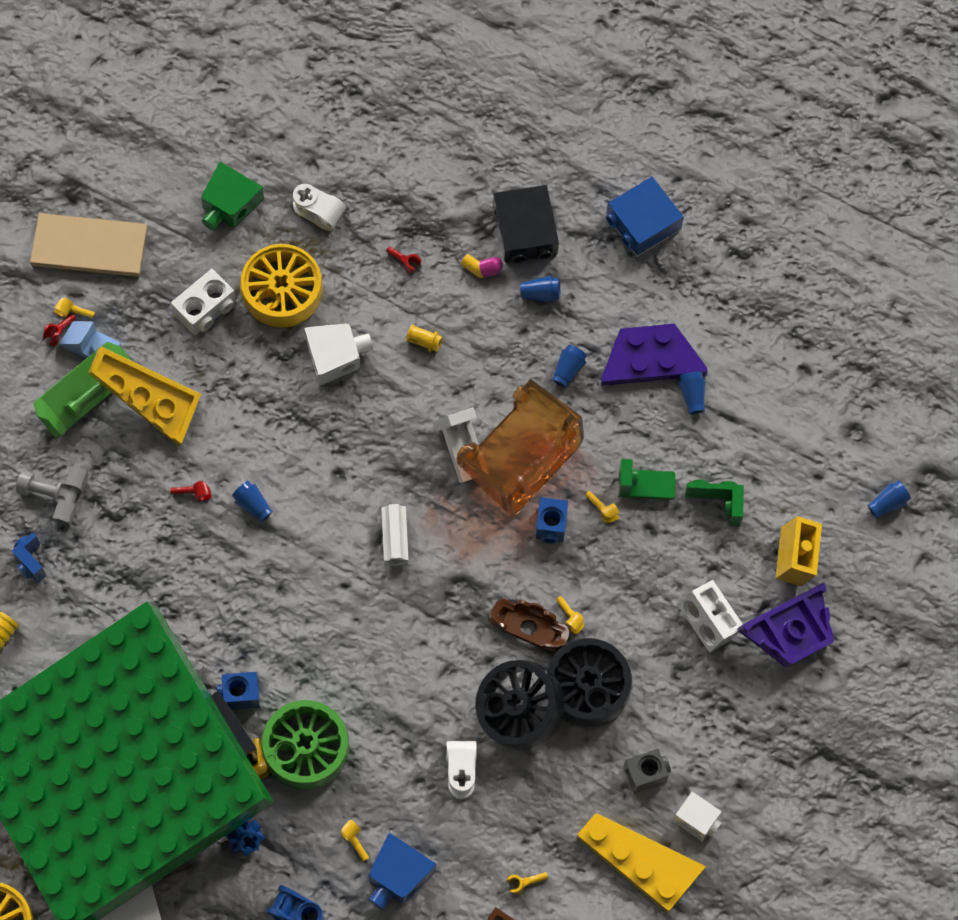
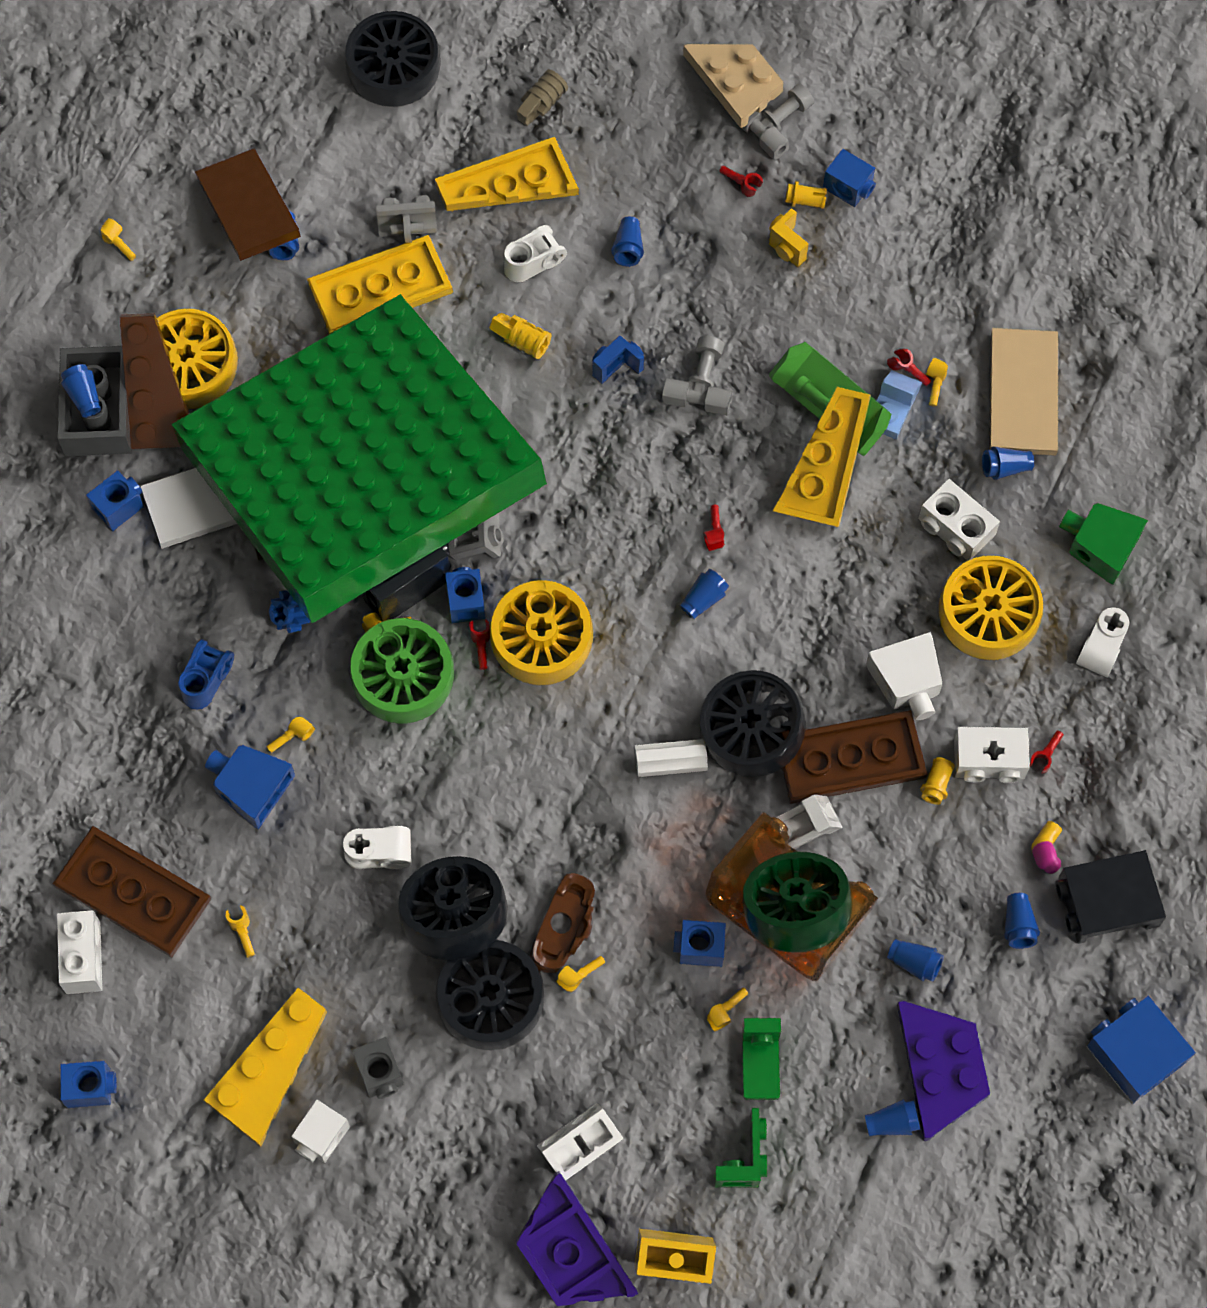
camera: 90 degrees right, 0 degrees up
(154, 264) = (1004, 462): none -> blue cone
(268, 637) = (549, 593): none -> yellow piece
(280, 682) = (480, 639): none -> red hand
(366, 435) = (787, 737): none -> black piece
(399, 402) = (856, 757): none -> reddish brown tile
(402, 282) = (1007, 745): none -> white brick
(531, 447) = (801, 912): none -> dark green piece

